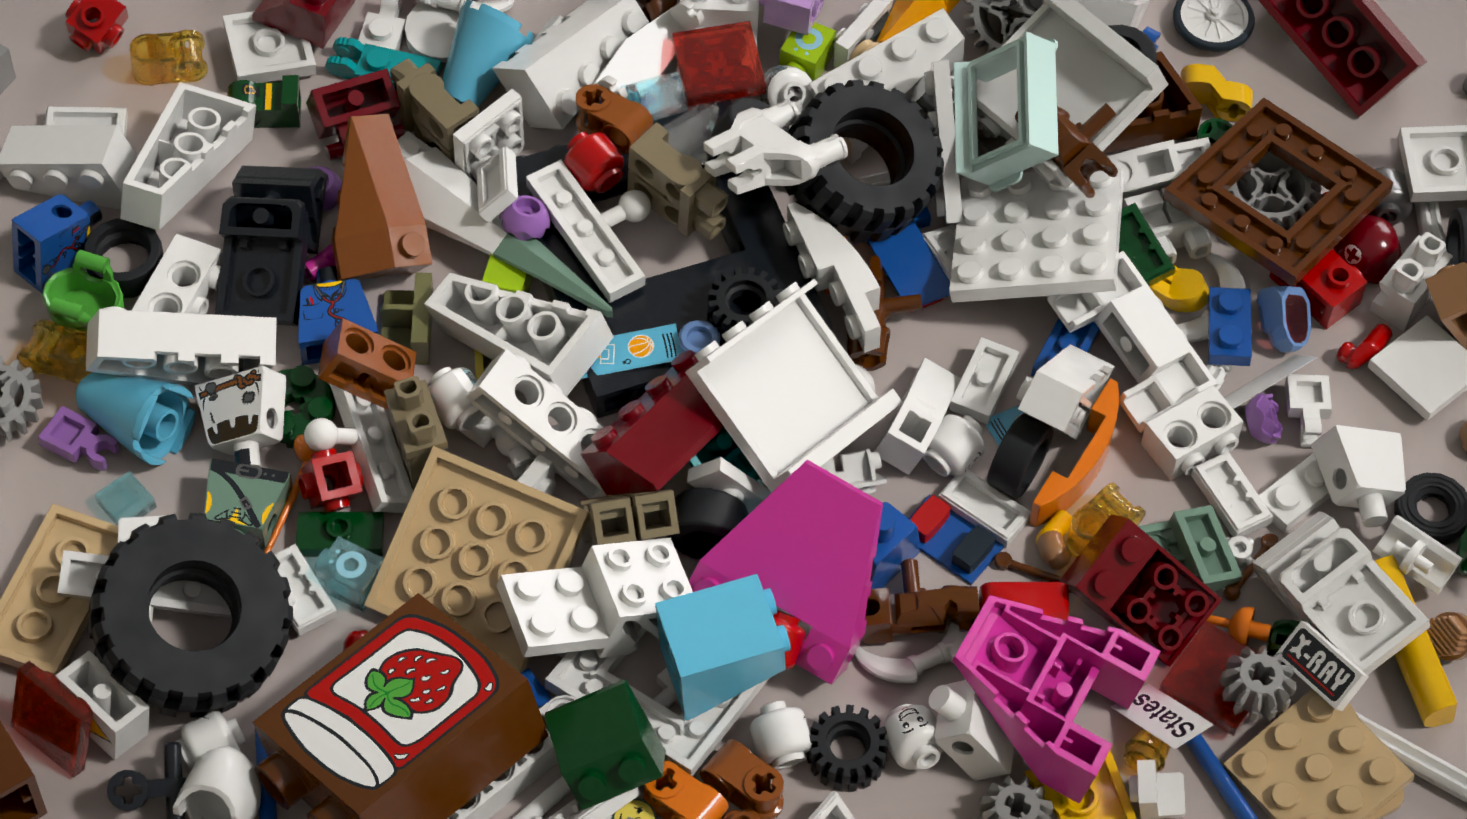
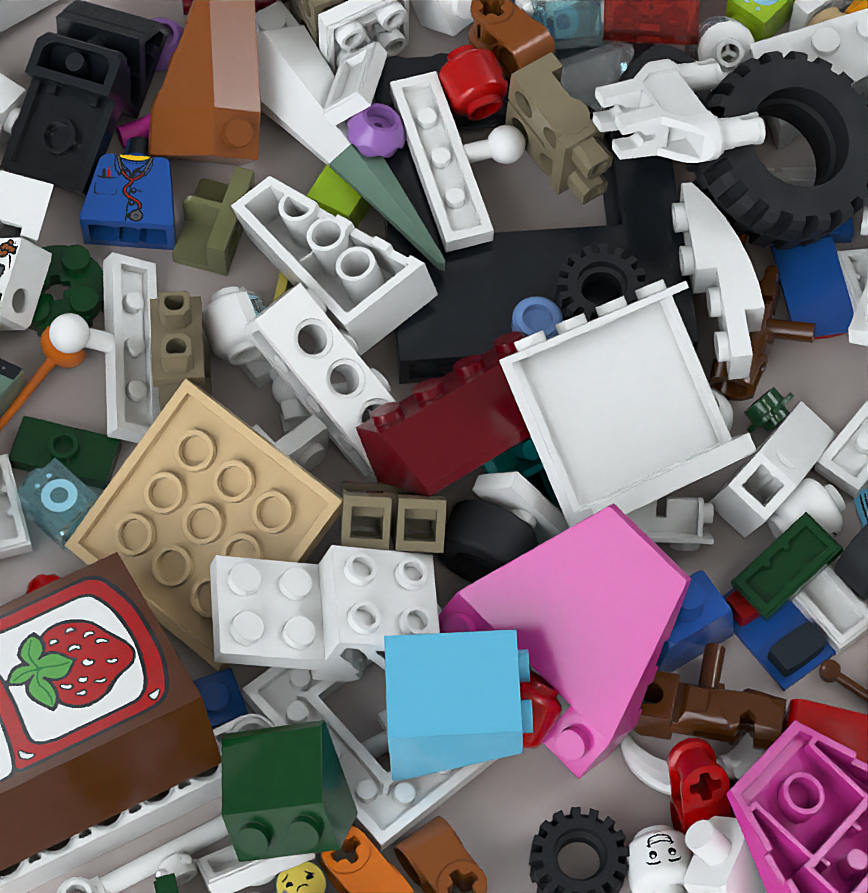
camera: 15 degrees right, 5 degrees up
(342, 472) = (87, 383): red brick -> none
(364, 362) = (145, 257): dark orange brick -> none
(638, 350) = (463, 316): medium azure sticker -> none
(781, 735) = (502, 825): white head -> none
(901, 370) = (768, 410): none -> dark green plate
(924, 666) = (696, 784): none -> red piece
(949, 486) = (787, 567): none -> dark green plate

